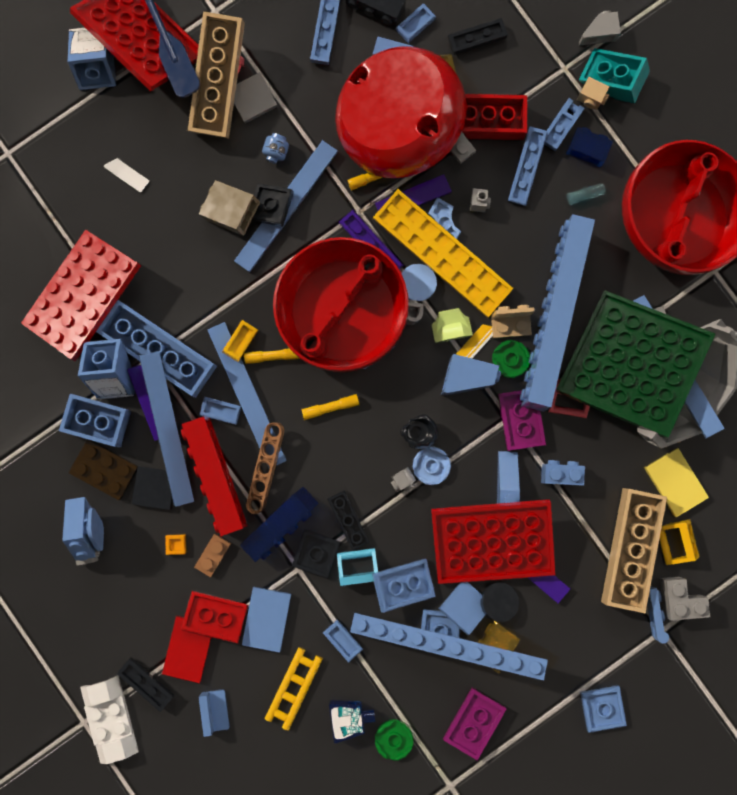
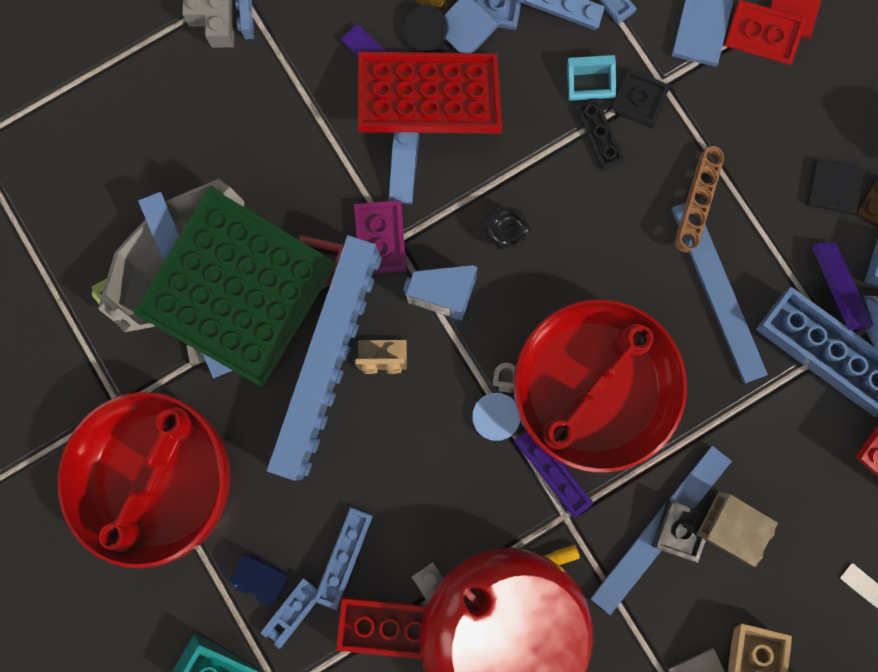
camera: 170 degrees left, 5 degrees down
(166, 428) = (823, 252): medium blue tile -> none
(175, 544) = (809, 119): light orange tile -> none
(212, 555) = (765, 104): medium nougat plate -> none
(214, 475) = (763, 190): red brick -> none
(220, 410) = (752, 274): medium blue tile -> none
(240, 341) = (726, 357): yellow tile -> none
(259, 356) = (709, 336): yellow piece -> none
(275, 148) = (673, 607): medium blue head -> none
(279, 524) = (683, 131): clear blue wedge -> none
(318, 410) = (629, 266): yellow piece -> none
(403, 480) = (531, 174): light grey plate -> none
(403, 585) = (538, 52): medium blue tile -> none
(424, 192) = (495, 528): dark purple tile -> none
(431, 465) = (494, 190): light blue tile -> none
(442, 214) = (459, 505): light blue tile -> none
(442, 253) = (463, 451): yellow plate -> none
(451, 325) = (457, 357): yellowish green slope -> none
(476, 342) = (428, 336): yellow sticker -> none
(479, 200) = (409, 516): light grey plate -> none
(511, 358) = (386, 313): green tile -> none
(562, 474) = (337, 168): medium blue brick -> none
(586, 193) = (270, 517): clear light blue axle -> none
(593, 93) = (247, 649): tan brick -> none
(634, 550) = (262, 75): tan brick -> none
(677, 482) = (200, 151): light yellow tile -> none
(688, 541) = (195, 83): yellow tile -> none

